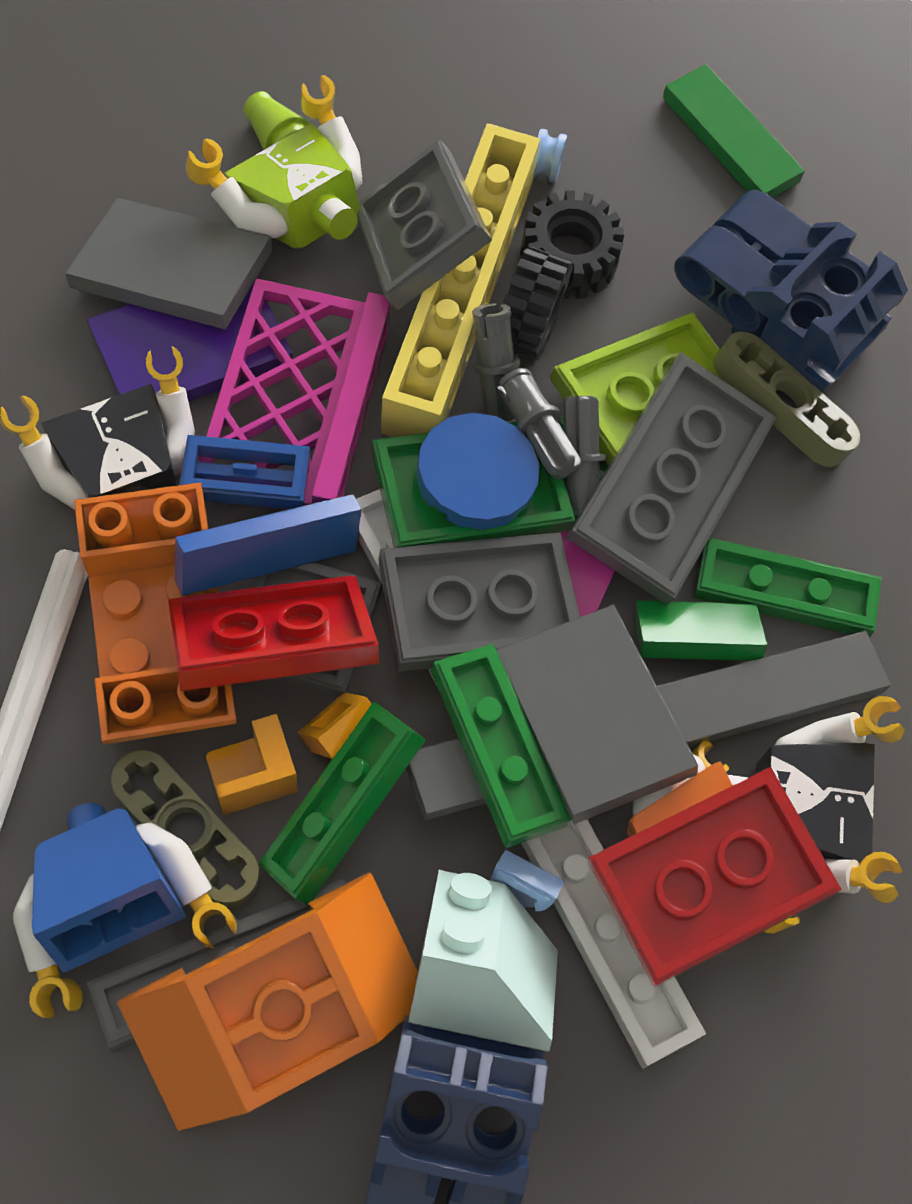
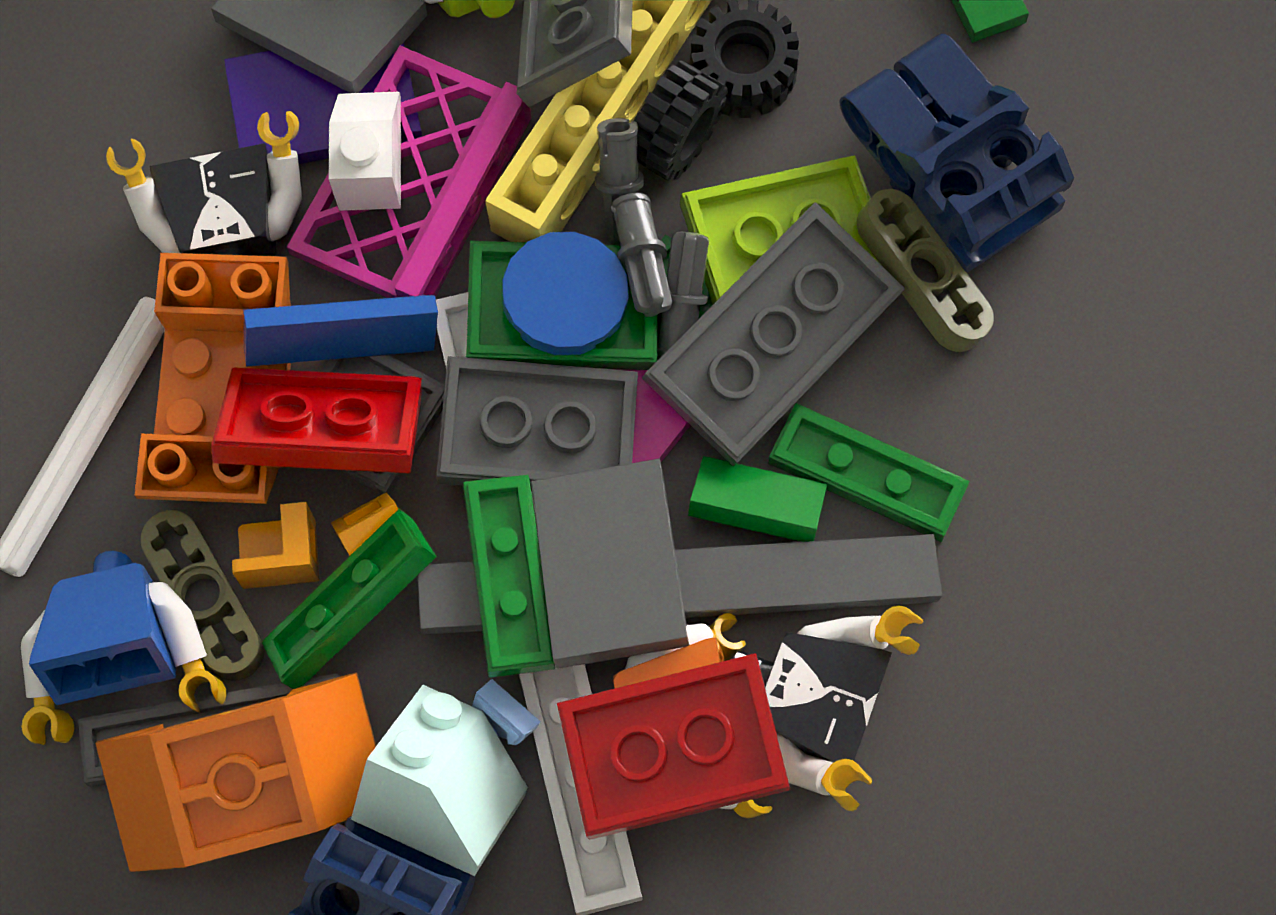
camera: 25 degrees right, 5 degrees up
(223, 491) = (332, 274): blue tile -> none
(254, 375) = (366, 151): none -> white slope

